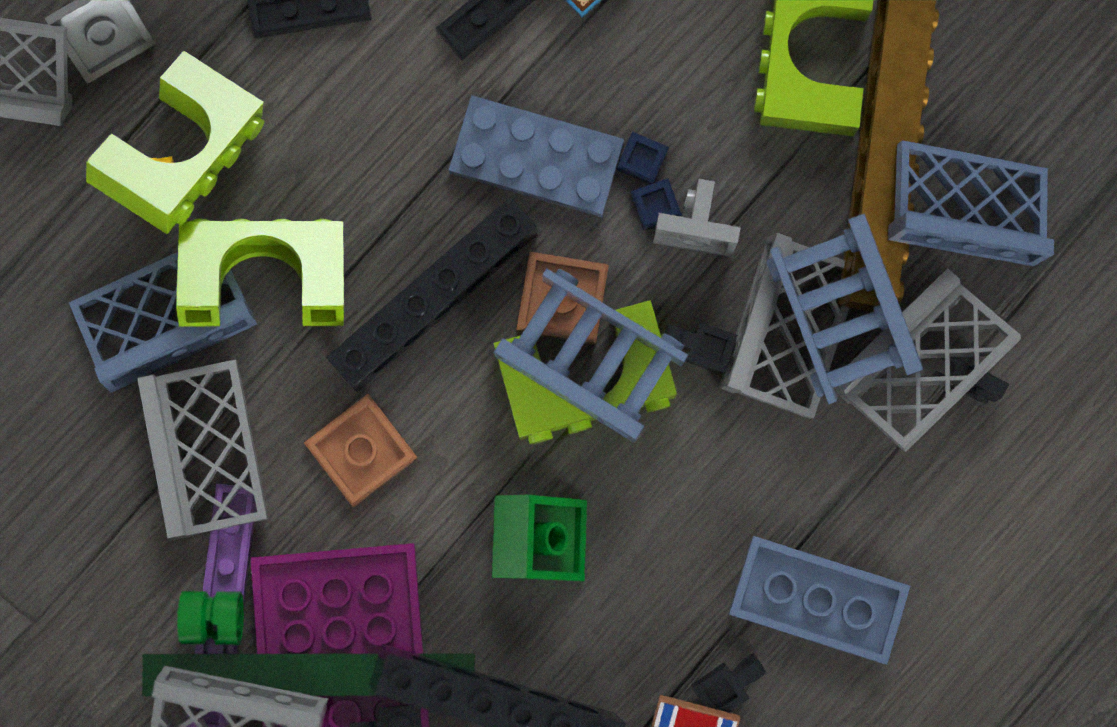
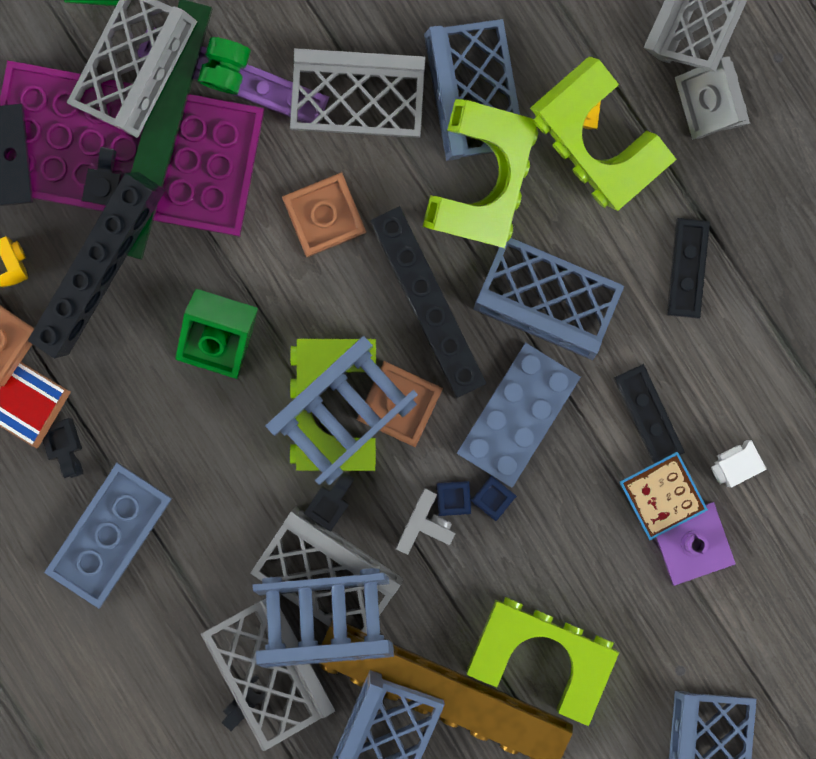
camera: 105 degrees right, 5 degrees up
(421, 154) = (542, 324): none -> sand blue fence

